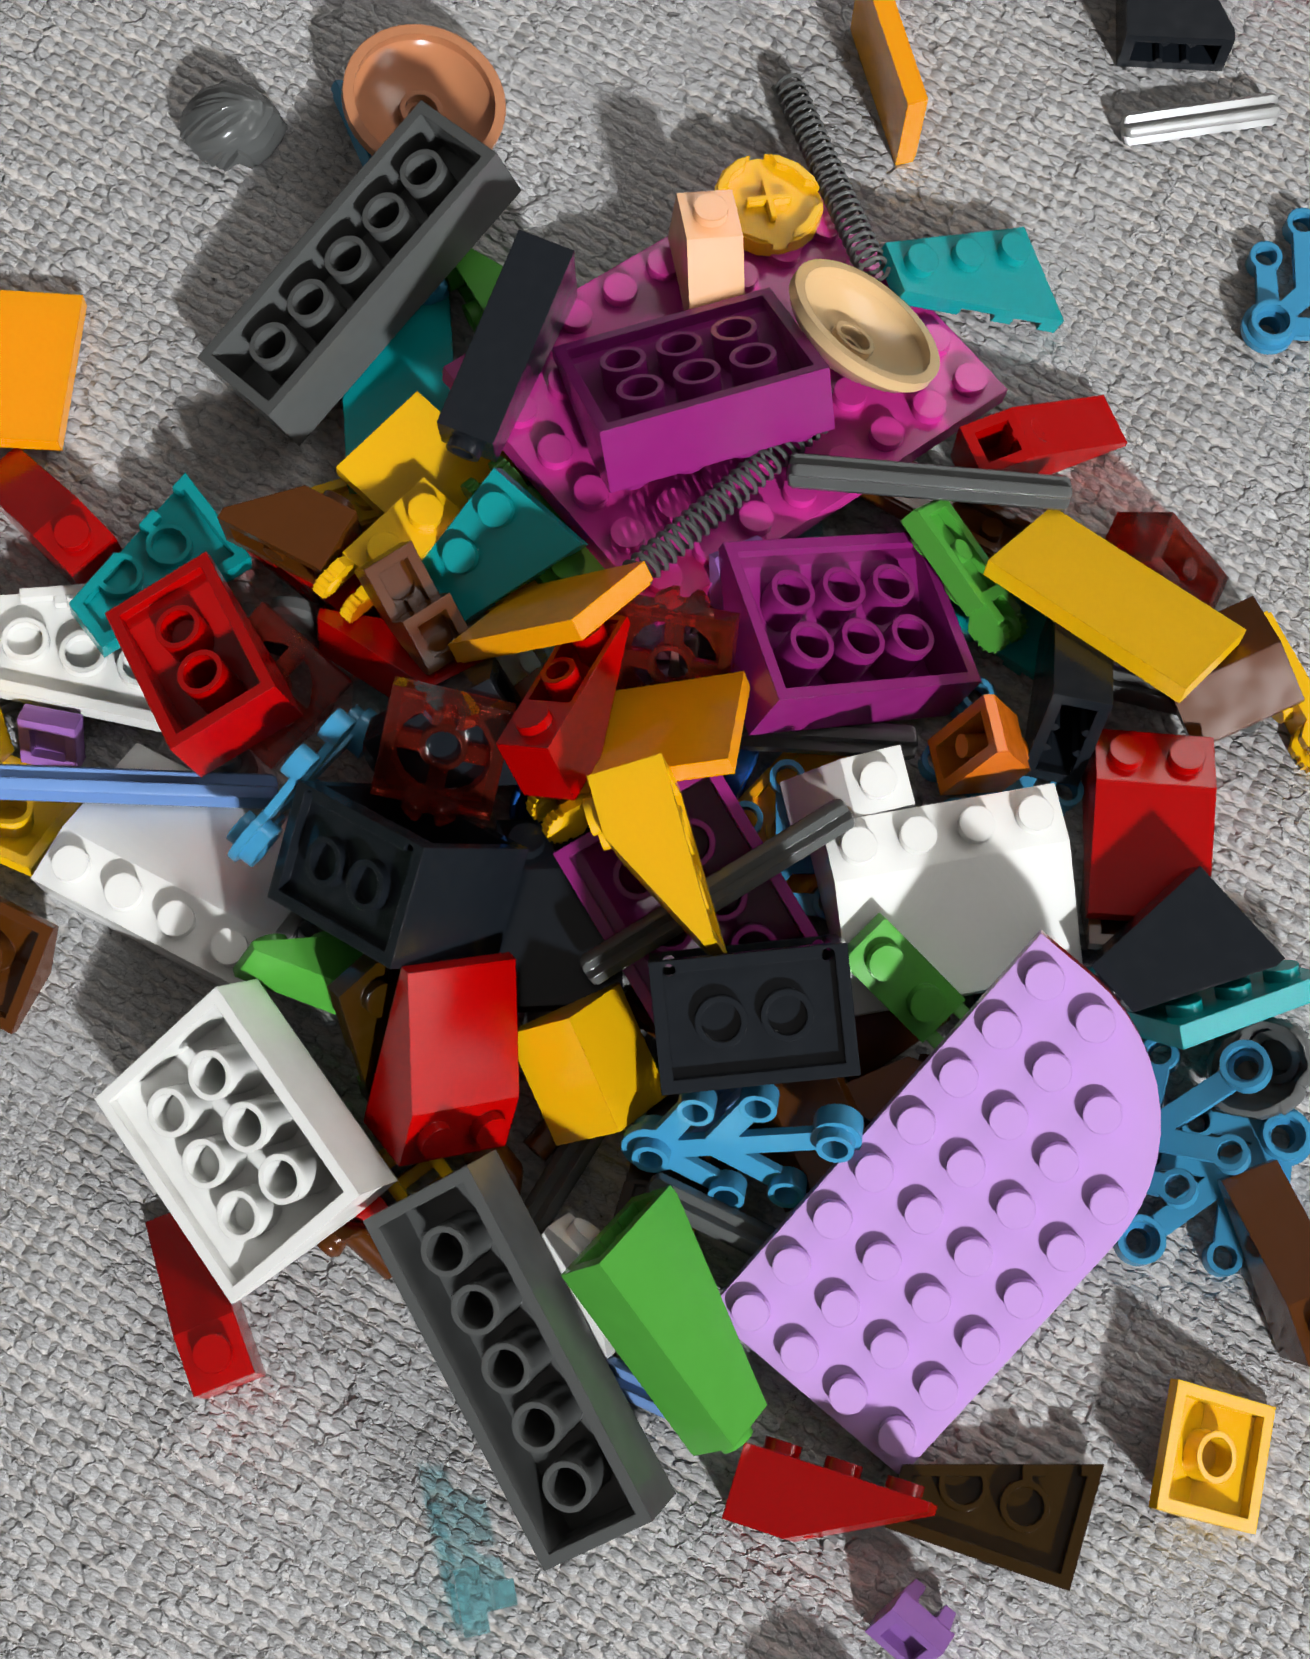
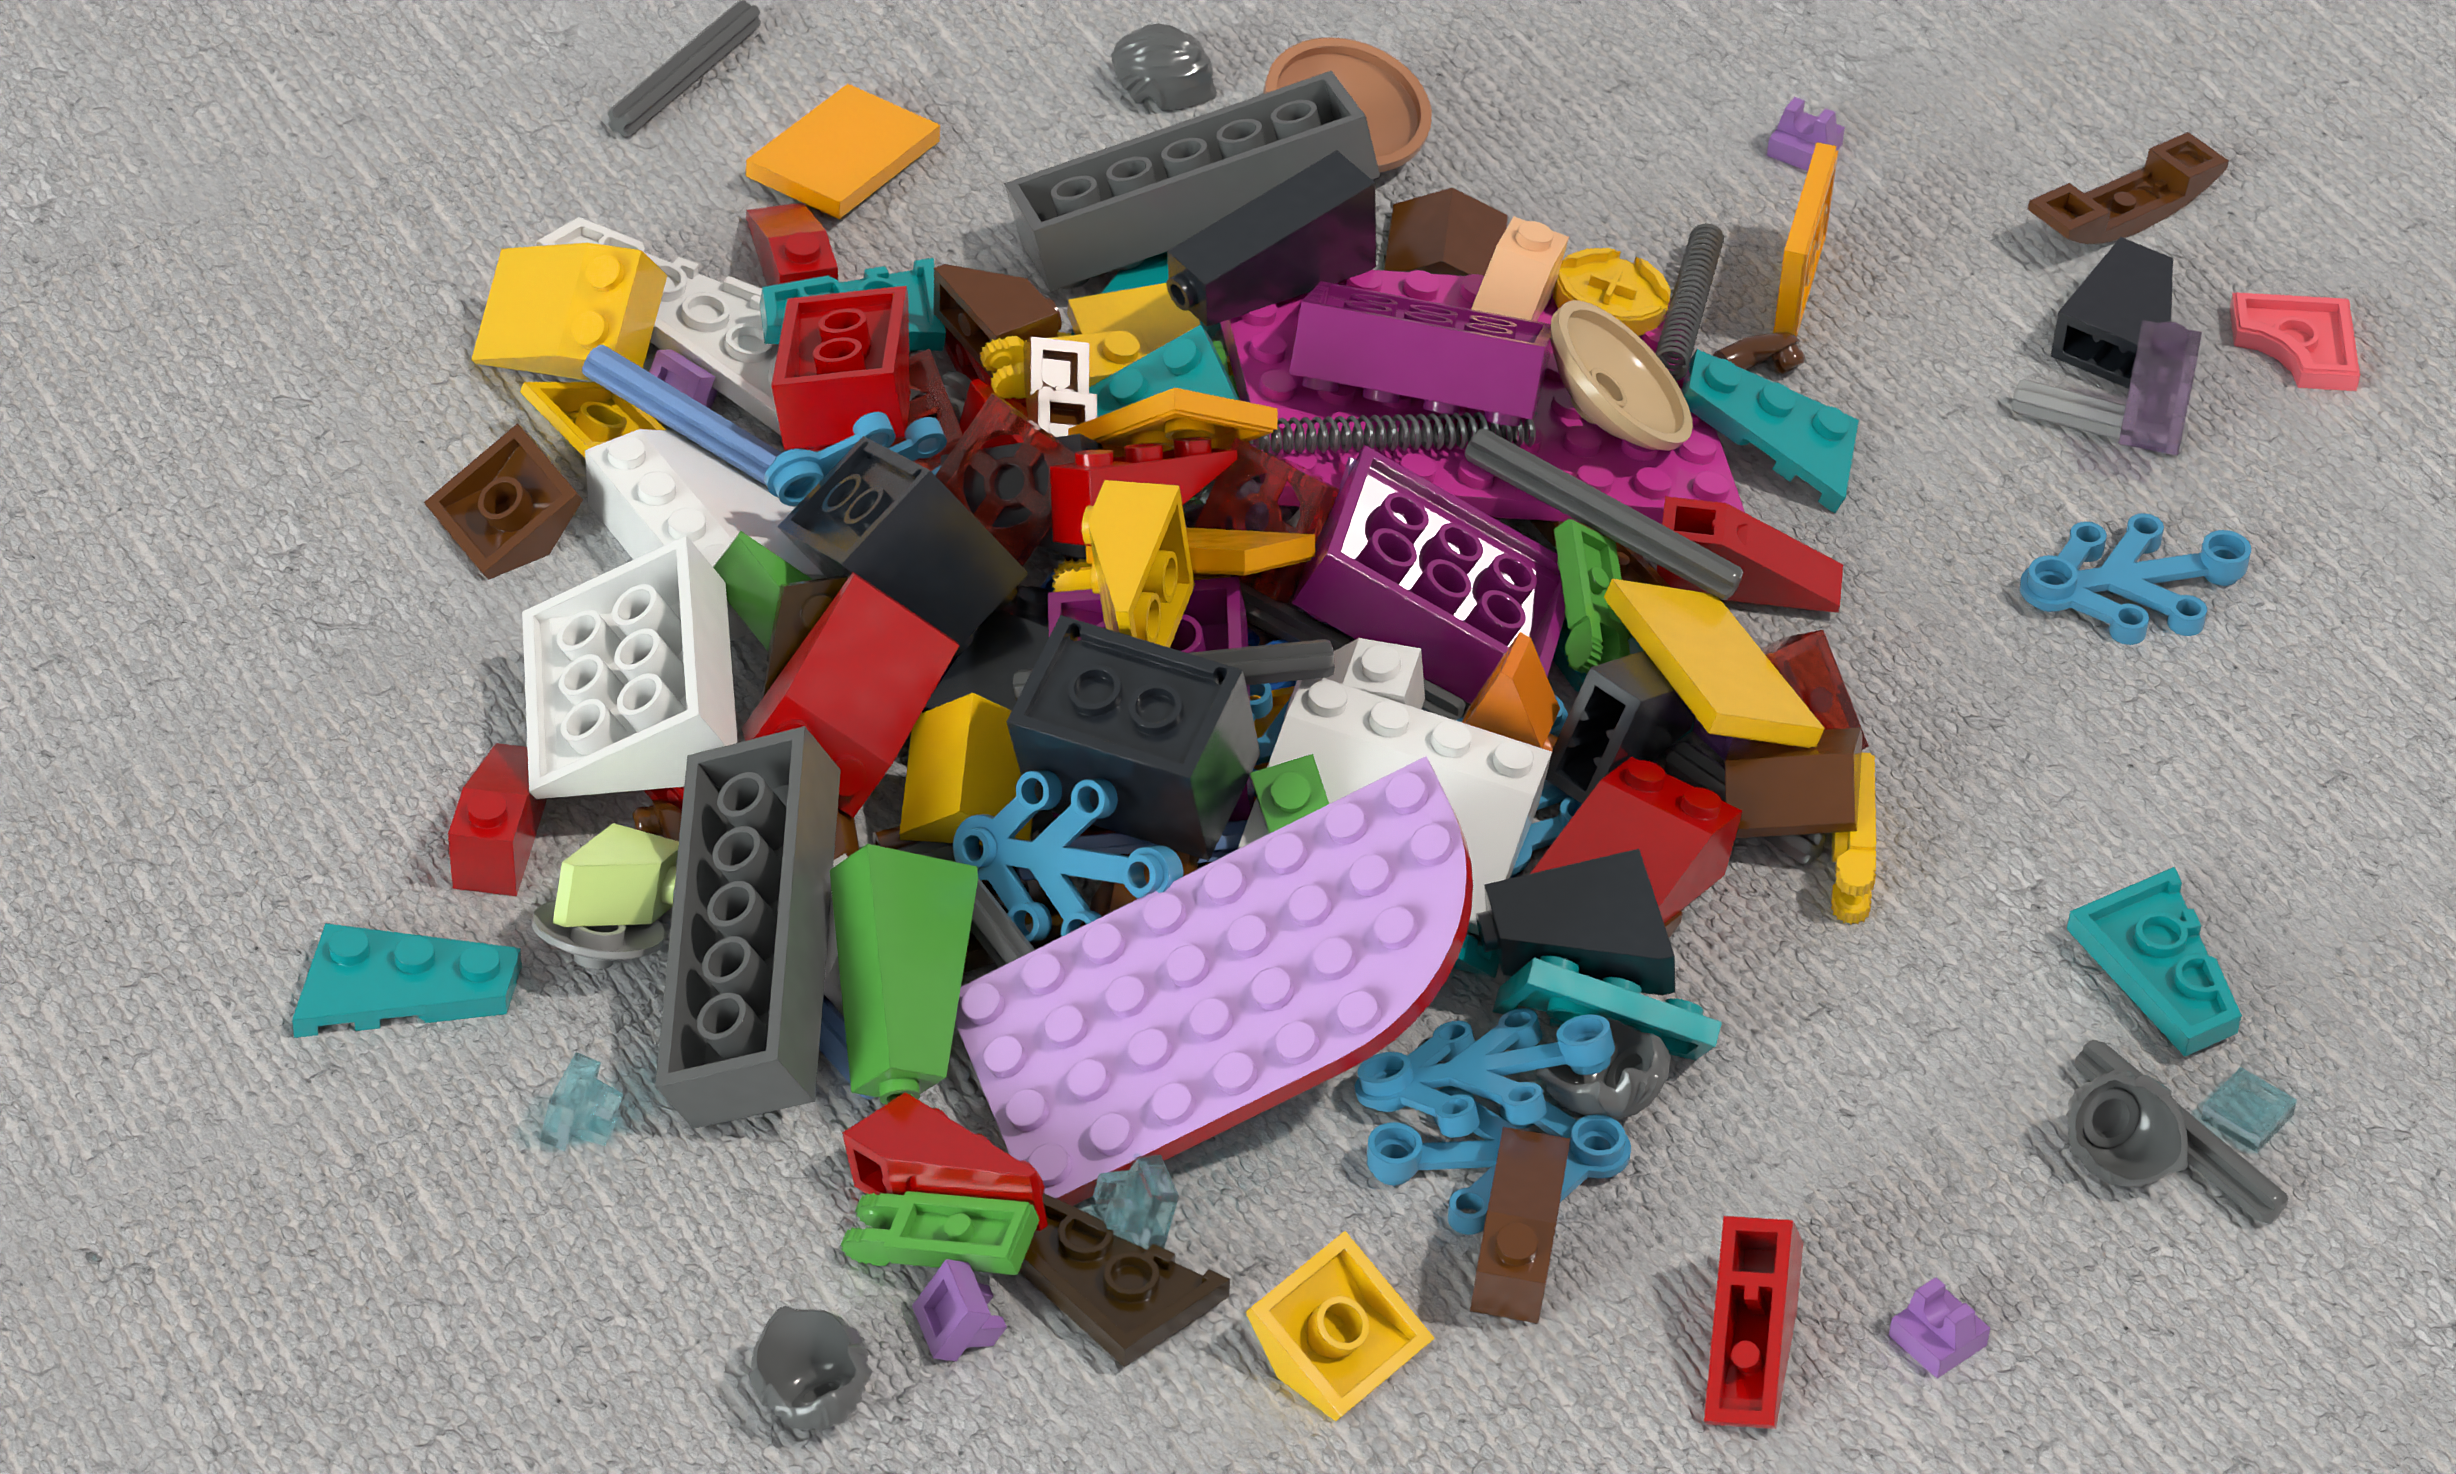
camera: 30 degrees right, 30 degrees down
(230, 1537) = (389, 974): none -> teal wing
(362, 1341) = (617, 879): none -> yellowish green slope
(365, 1375) = (598, 945): none -> light grey dish
(583, 201) = (1443, 234): none -> reddish brown slope
(863, 1564) = (939, 1227): none -> bright green hinge
(915, 180) = (1756, 349): none -> reddish brown arm
(993, 1424) = (1139, 1200): none -> clear light blue tile
(1254, 80) = (2160, 387): none -> clear purple slope

